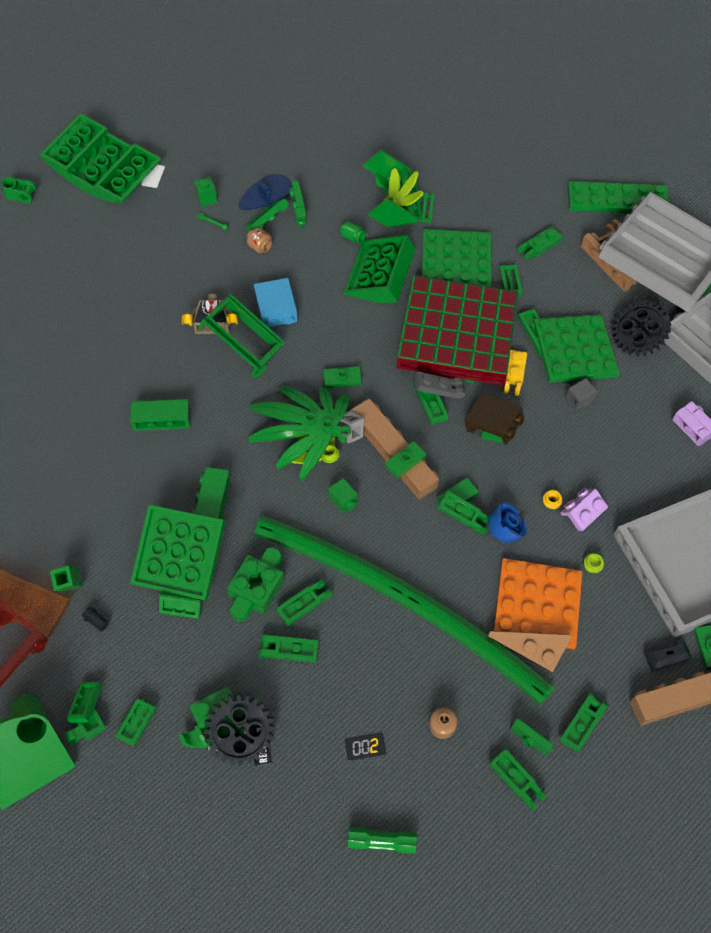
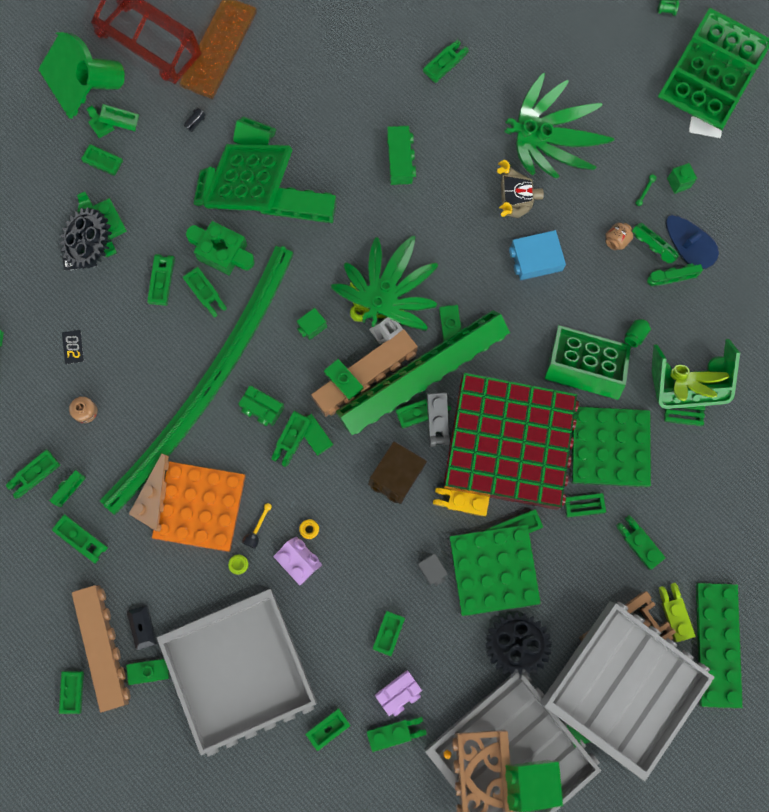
camera: 90 degrees right, 15 degrees up
(58, 374) = (445, 61): none -> green hinge
(66, 578) = (228, 90): green brick -> none
(120, 556) = (252, 132): none -> green panel
(147, 299) = (536, 131): none -> green plant
(254, 323) = (460, 246): green piece -> none
(394, 397) = (423, 372): none -> green brick
(430, 542) = (261, 406): none -> green brick
(506, 524) = (275, 478): blue cylinder -> none
(568, 550) = (251, 539): none -> hinge
(594, 223) = (676, 614): none -> lime hinge
(643, 431) = (388, 633): none -> green plate

